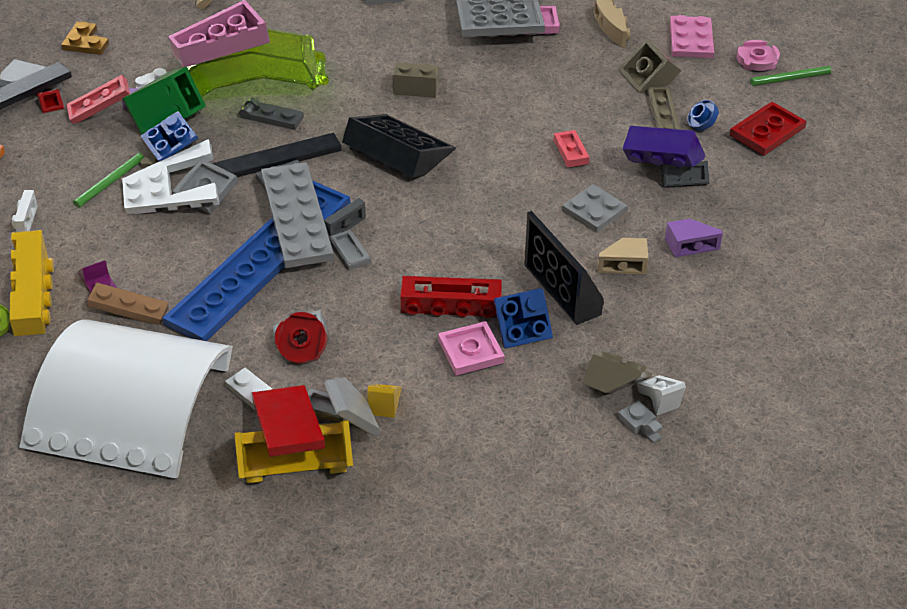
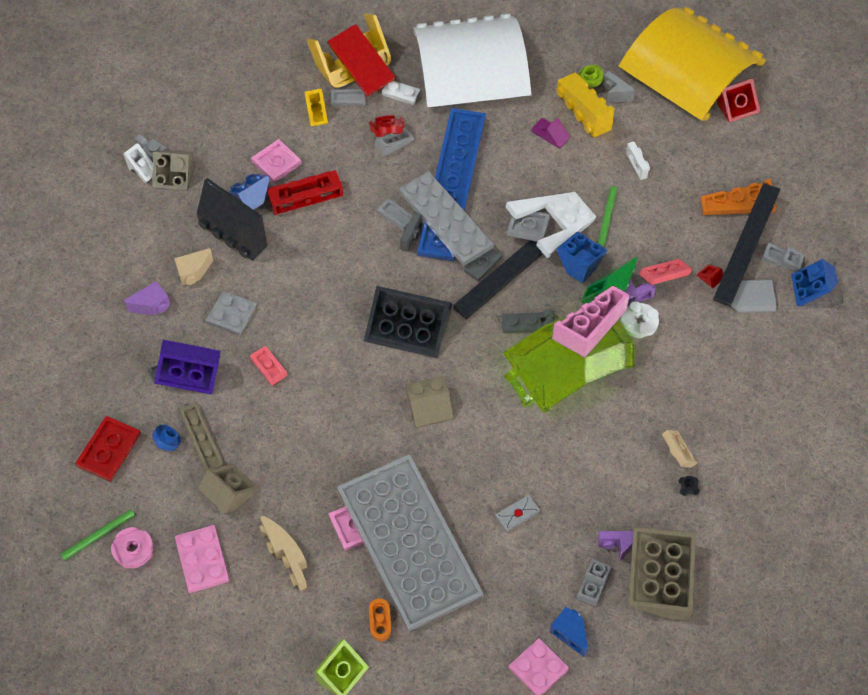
camera: 160 degrees right, 15 degrees up
(82, 39) = (741, 348): pearl gold plate -> none
(127, 304) = (516, 118): medium nougat plate -> none
(351, 405) = (330, 78): light grey tile -> none

